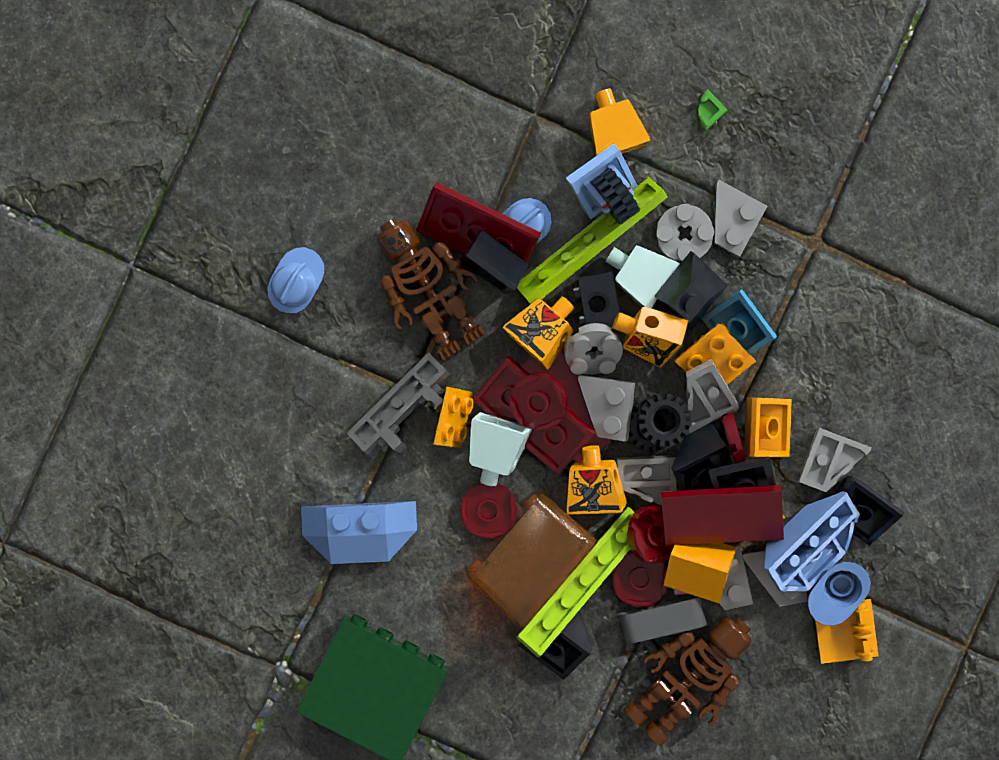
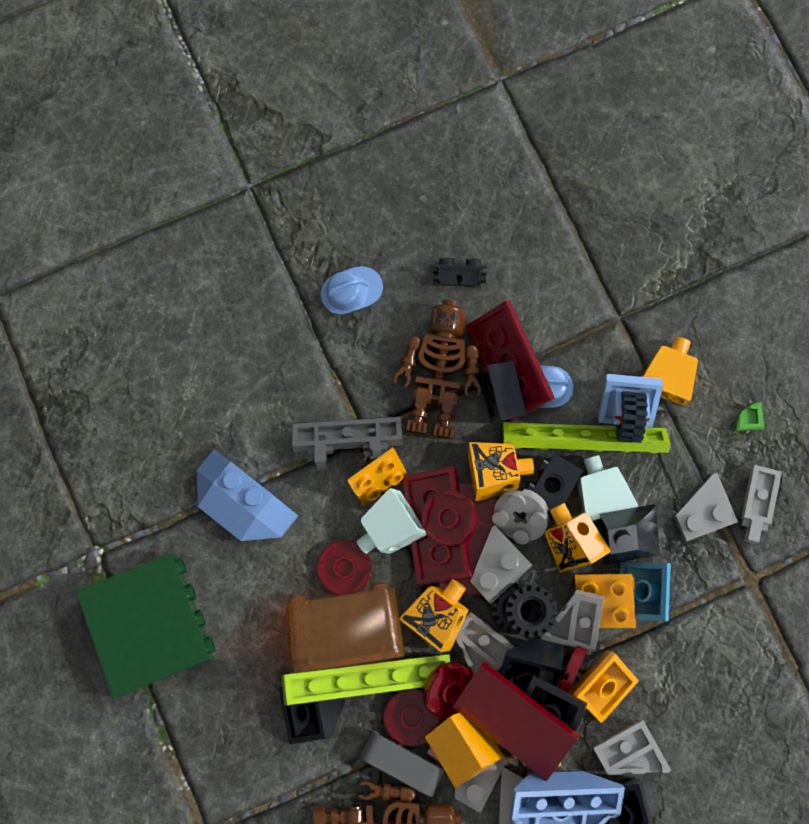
camera: 50 degrees right, 10 degrees down
(379, 181) = (469, 270): none -> black hinge
(684, 216) = (668, 477): light grey plate -> none
(771, 174) = (759, 502): none -> light grey hinge

